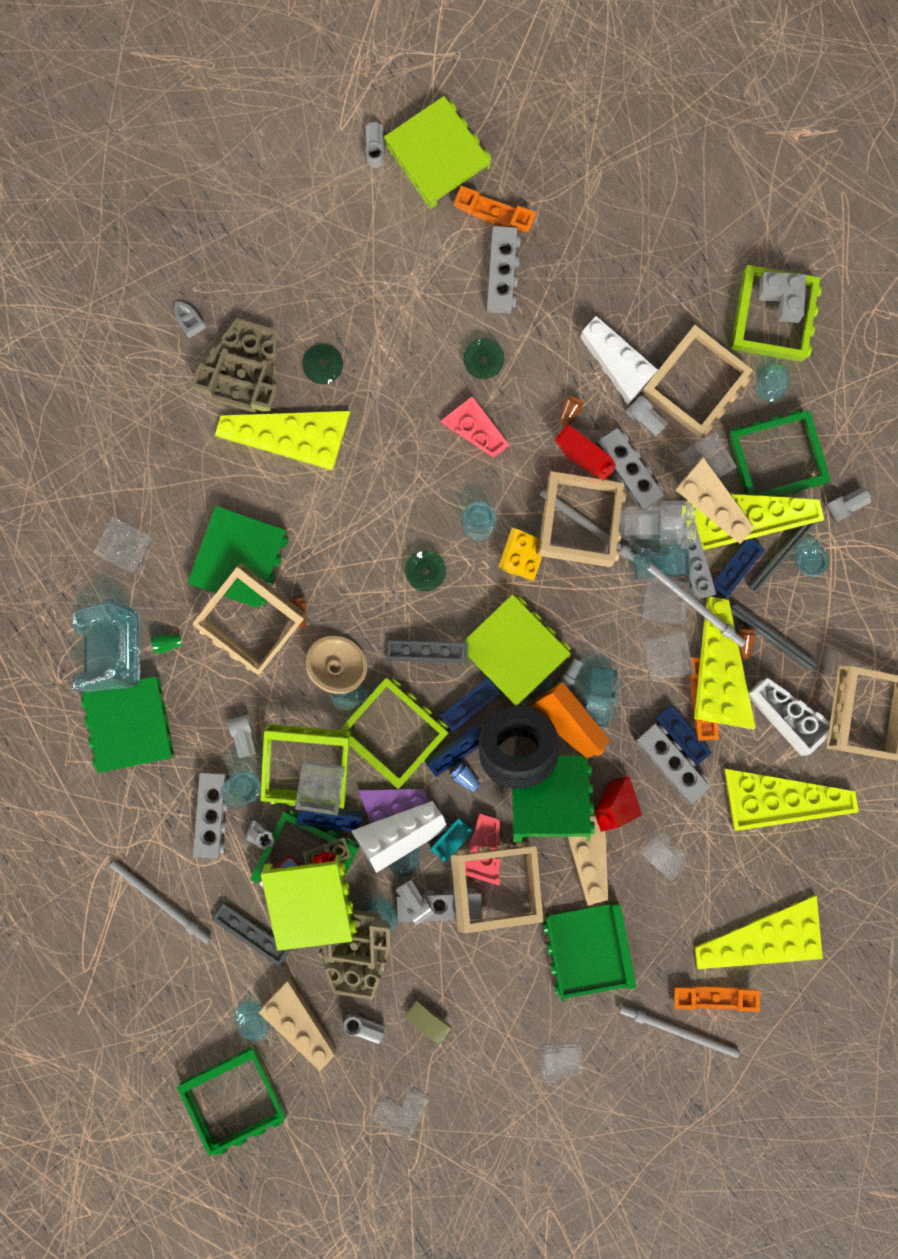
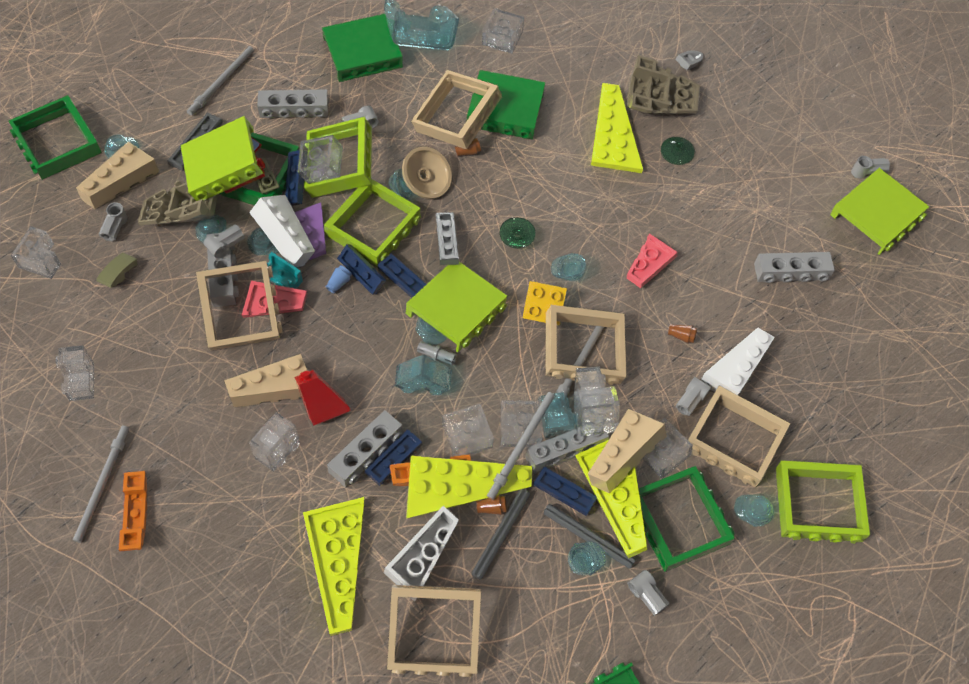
camera: 75 degrees right, 25 degrees down
(165, 642) = (429, 63): green cone -> none
(241, 789) = (315, 116): clear light blue hat -> none
(259, 834) = (278, 132): light grey piece -> none
(483, 349) = (714, 254): clear green dish -> none
(494, 211) = (843, 255): orange slope -> none
(518, 722) = (355, 318): black tyre -> none
(556, 805) = (324, 339): green panel -> none
(571, 720) = (397, 351): orange slope -> none
(584, 453) = (647, 337): red slope -> none
(589, 950) = (181, 394): green panel -> none
(643, 473) = (658, 365): light grey brick -> none
(776, 938) = (195, 569): neon yellow wing -> none
(788, 290) = (845, 498): light grey brick -> none

